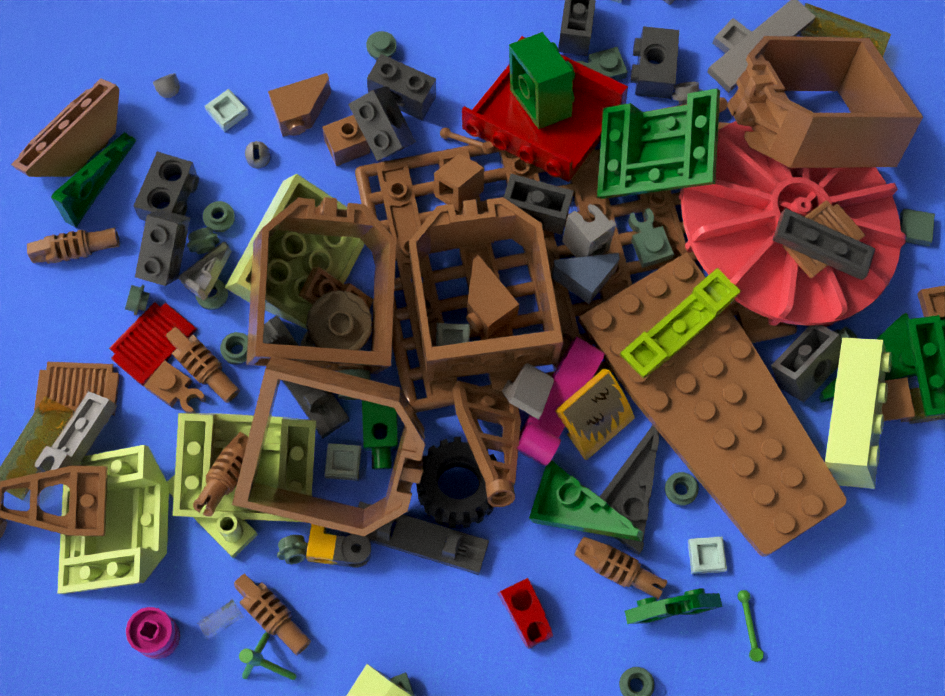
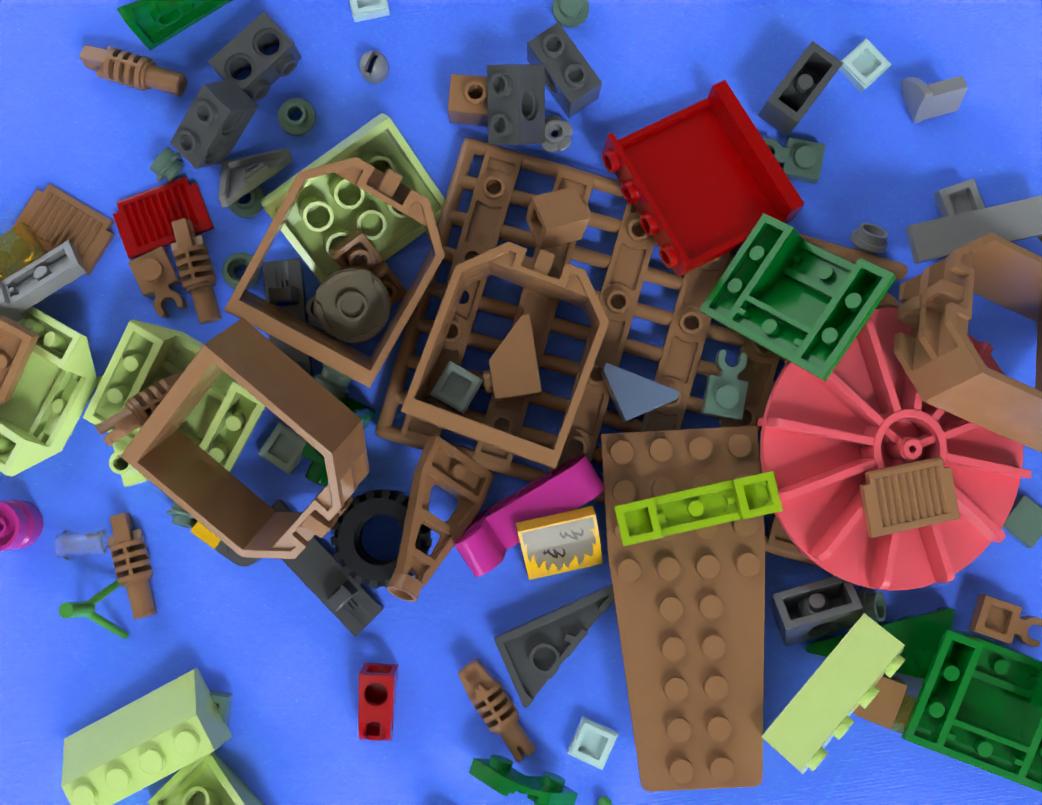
camera: 30 degrees right, 15 degrees up
(202, 240) = (264, 136): sand green plate -> none
(299, 104) = (445, 33): medium nougat slope -> none
(427, 137) = (564, 130): none -> light grey plate
(487, 147) = (614, 191): medium nougat hinge -> none
(529, 390) = (497, 491): light grey slope -> none
(541, 80) = (713, 146): green brick -> none
(541, 201) = (625, 287): dark grey brick -> none
(570, 505) = (481, 622): green wing -> none
(588, 237) = (659, 358): light grey hinge -> none
(659, 46) = (873, 171): dark grey brick -> none
(686, 480) = (601, 674): sand green plate -> none
(823, 244) = (905, 509): dark grey tile -> none

